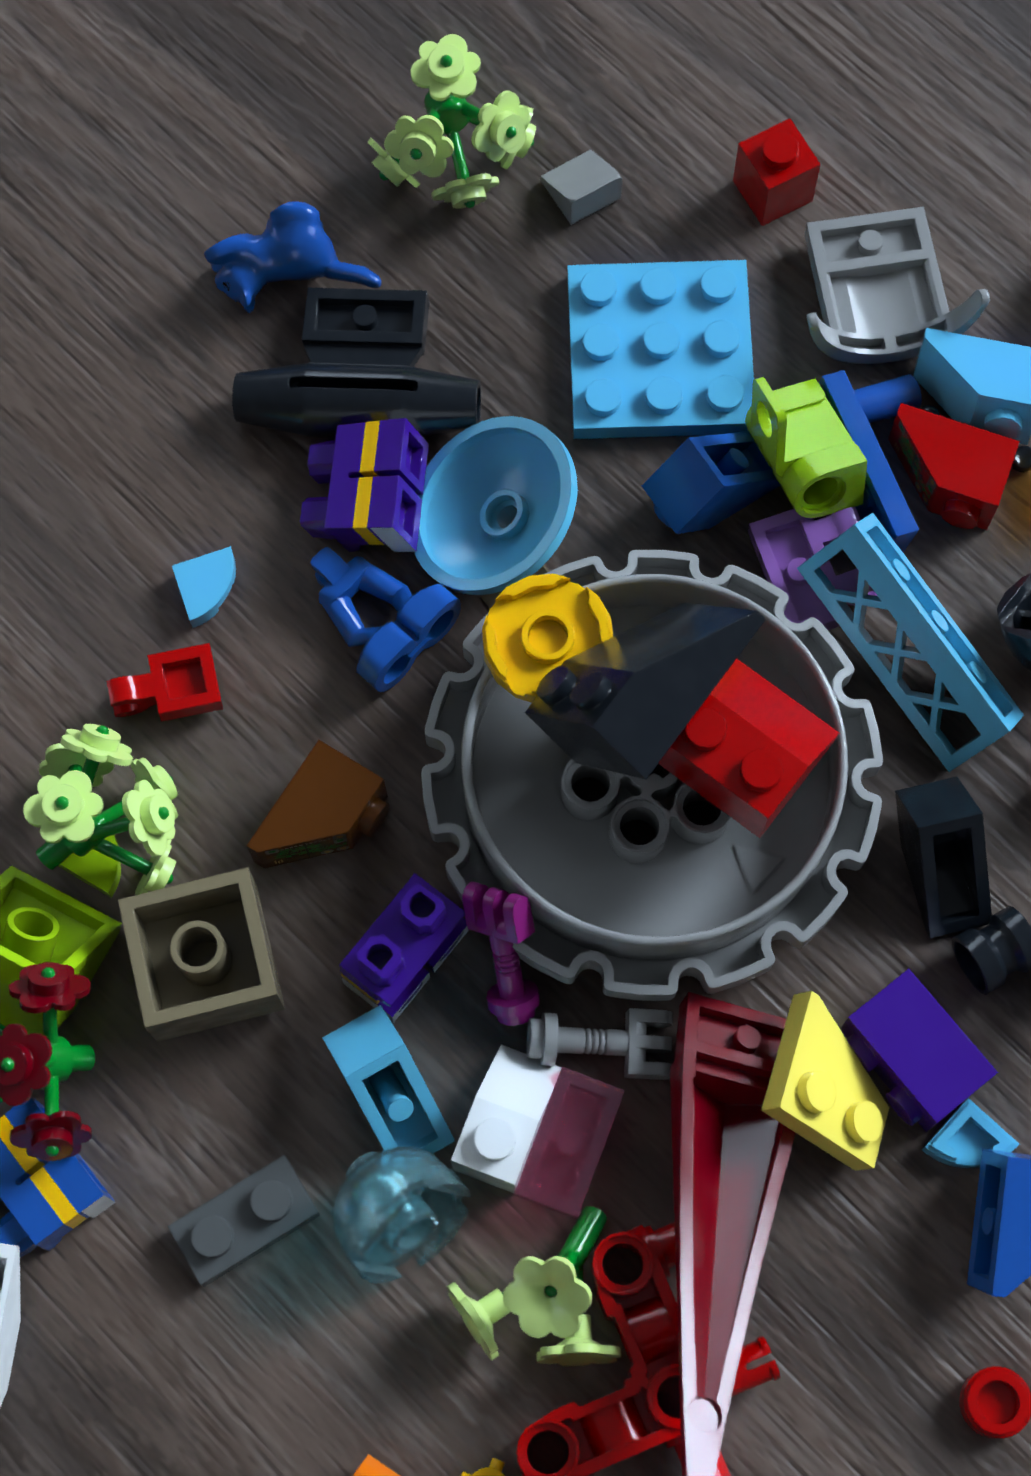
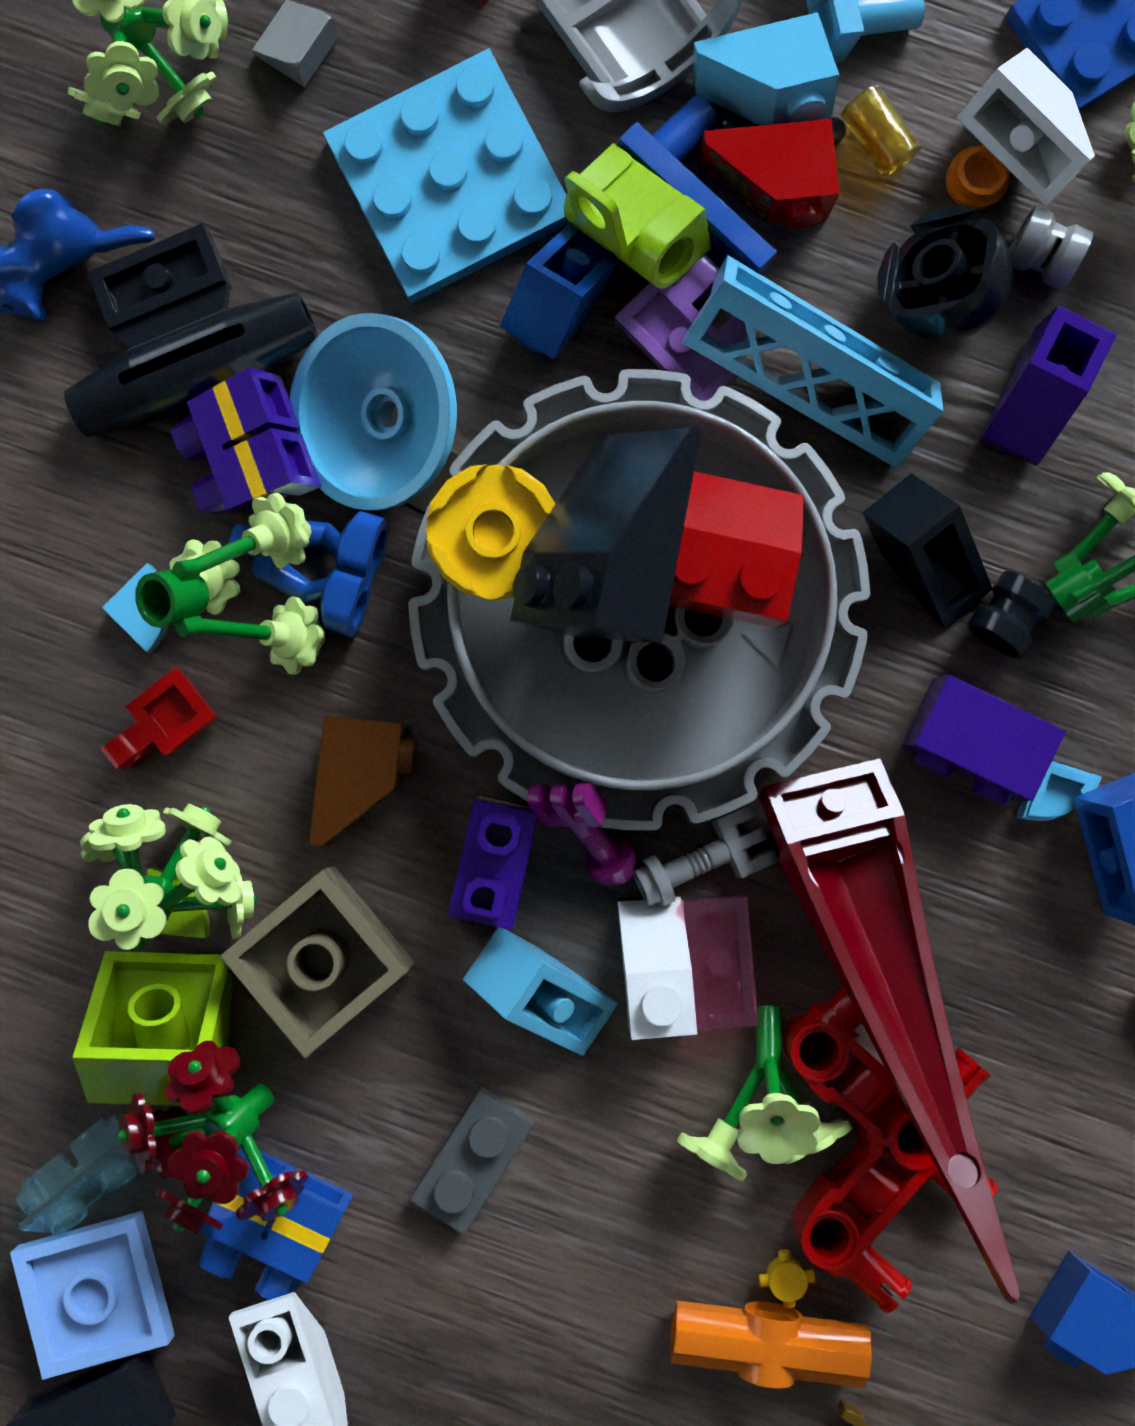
camera: 30 degrees left, 15 degrees up
(270, 579) = (205, 580): none -> plant
(397, 1208) = (598, 1095): clear light blue cylinder -> none
(824, 1088) = (919, 813): light yellow wing -> none

